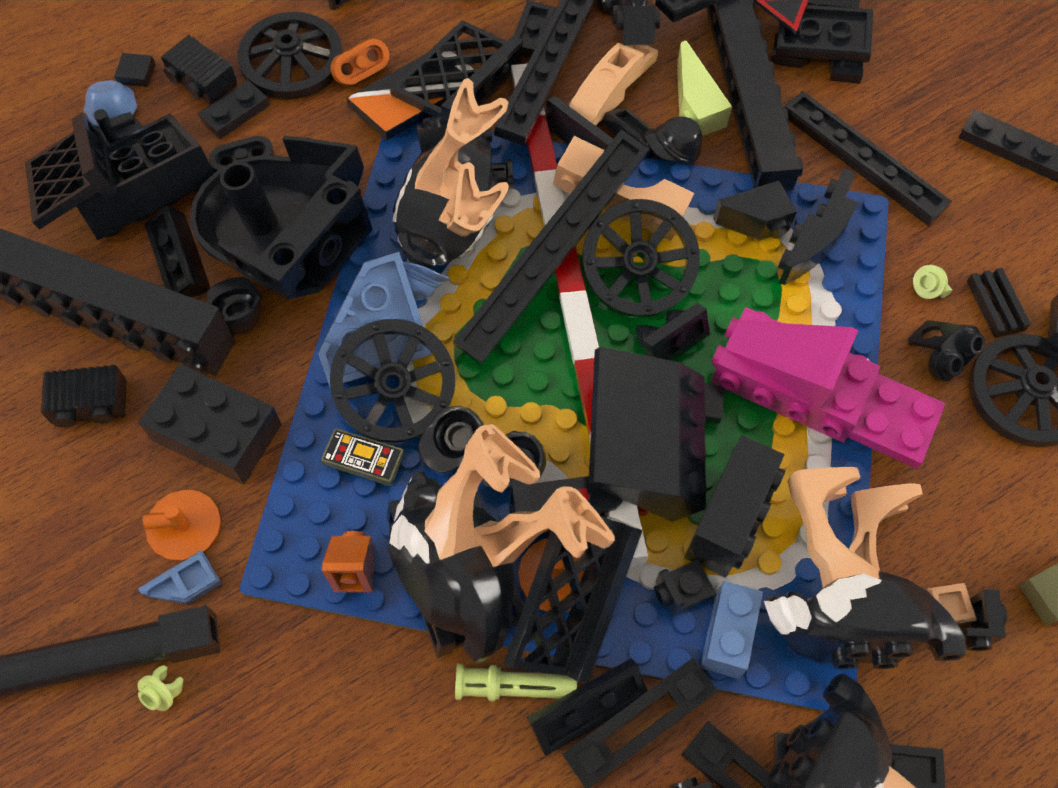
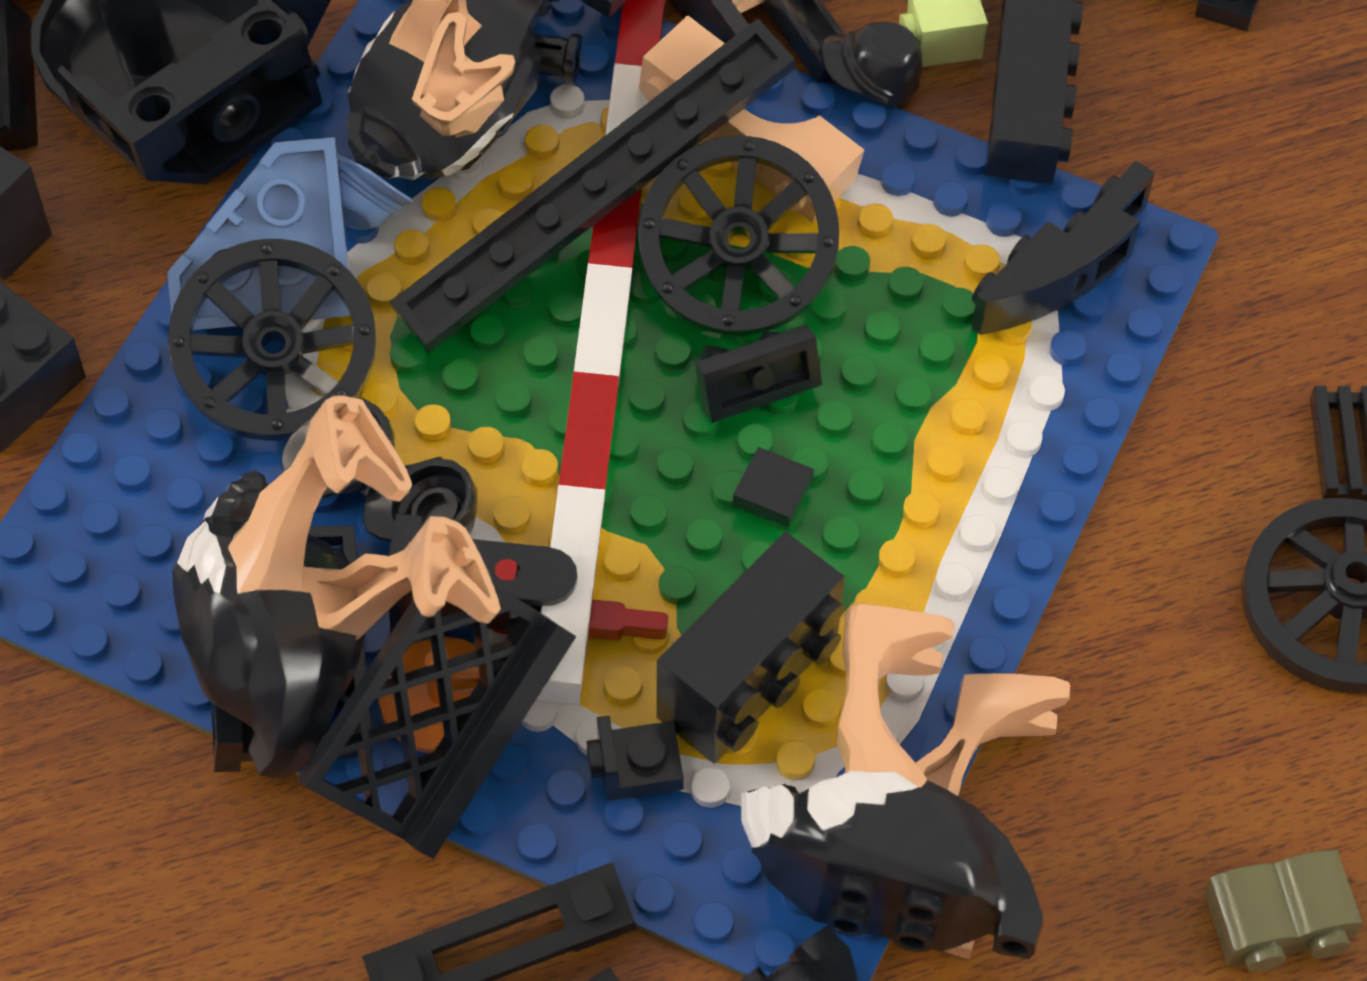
camera: 15 degrees right, 5 degrees down
(238, 303) = (68, 174): black hat -> none
(350, 562) = (119, 596): orange slope -> none
(363, 457) = (191, 447): tile -> none
(496, 683) = (291, 821): yellowish green pin -> none
(587, 706) = (421, 897): black tile -> none
(648, 433) = (644, 499): black slope -> none
(731, 630) = (684, 834): medium blue brick -> none
(757, 212) = (967, 203): black slope -> none
(818, 383) = (962, 493): dark pink wedge -> none
(867, 158) = (1206, 158): black tile -> none
(931, 282) = (1238, 385): yellowish green plate -> none
(952, 349) = (1229, 498): black bracket -> none
(955, 601) = (1075, 896): light nougat tile -> none
(990, 622) = (1109, 951): black bracket -> none

